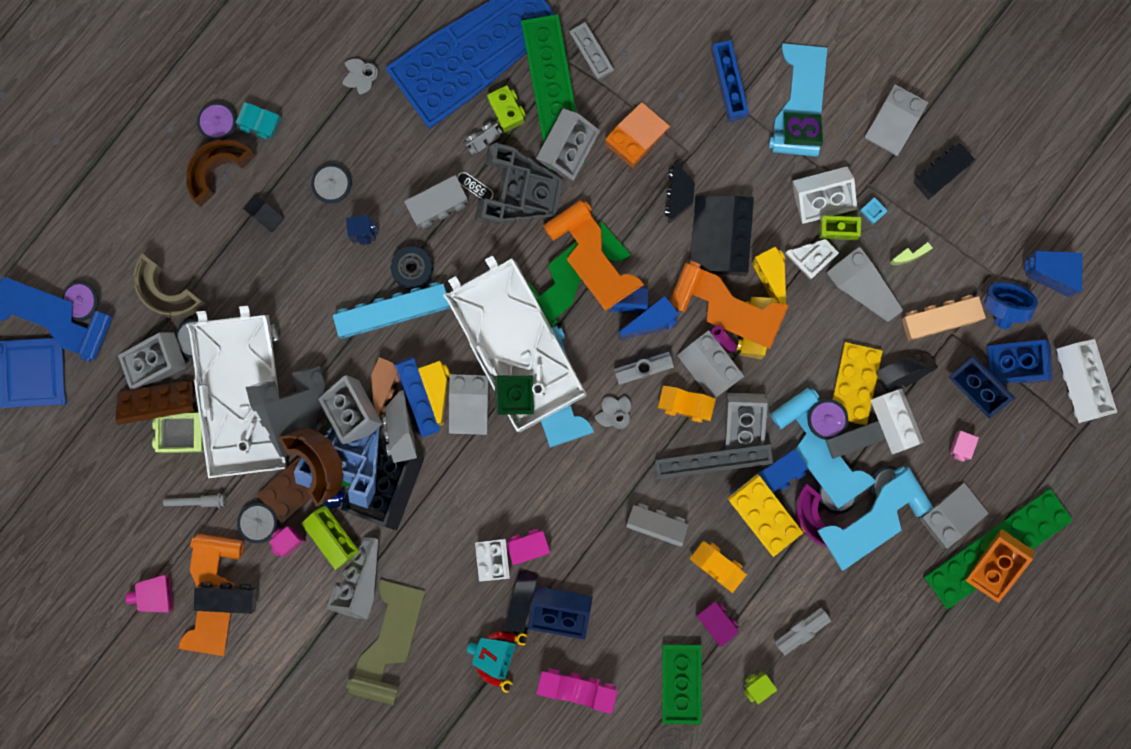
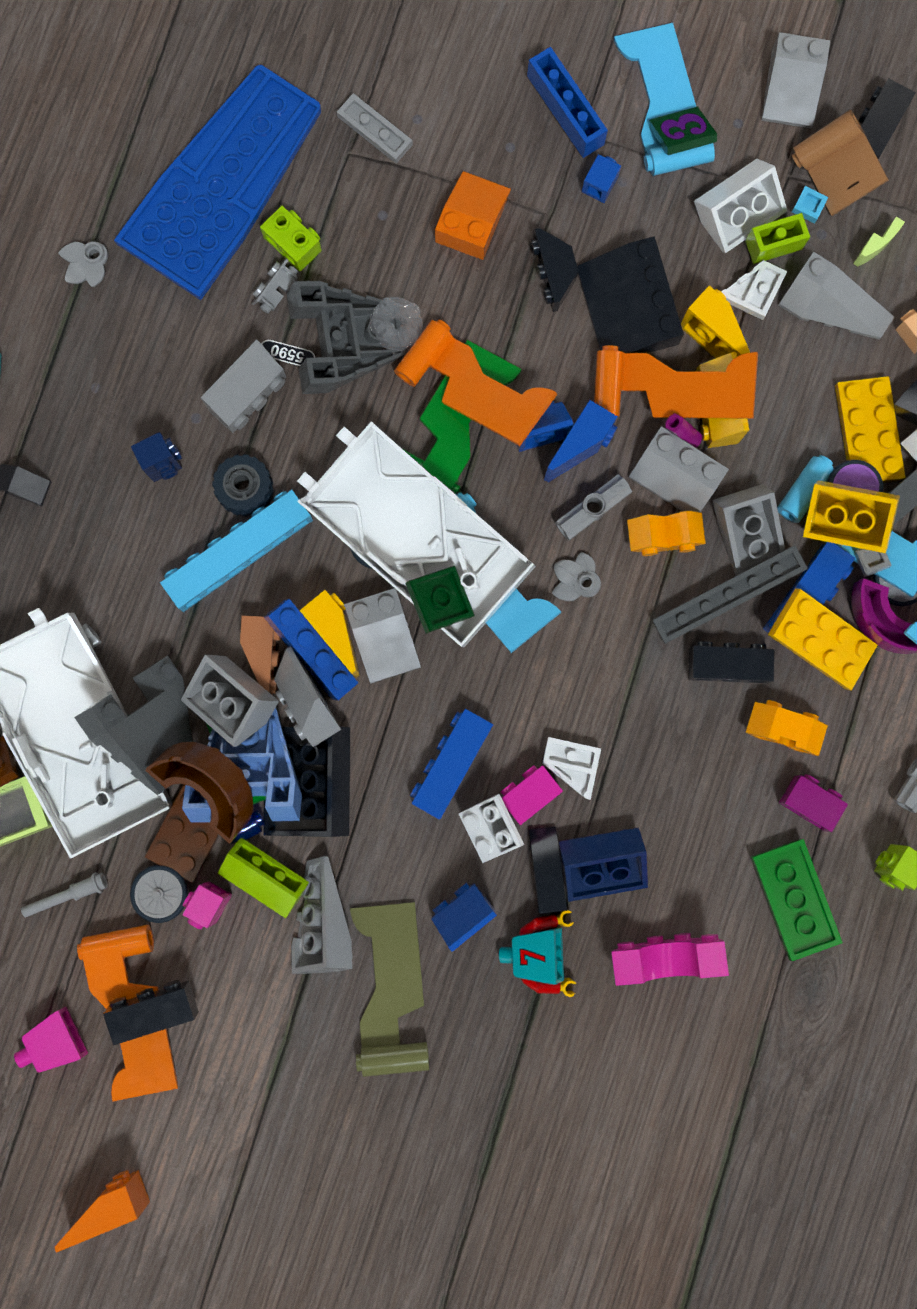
camera: 30 degrees left, 0 degrees up
(161, 714) = (116, 1206): none -> orange slope
(331, 183) = (96, 414): light grey wheel -> none
(453, 610) = (462, 915): none -> blue slope
(482, 508) = (451, 764): none -> blue brick
(548, 70) = (344, 194): green plate -> none
(565, 537) = (573, 764): none -> white wing
(566, 191) = (406, 313): none -> clear plate
(568, 144) = (389, 251): light grey slope -> none
(657, 524) = (688, 703): light grey slope -> none
(697, 508) = (731, 663): none -> black brick
(735, 141) = (601, 178): none -> blue brick
(813, 438) = (851, 516): none -> yellow brick
(820, 473) = (872, 561): none -> light grey tile
(904, 188) = (839, 159): none -> medium nougat door

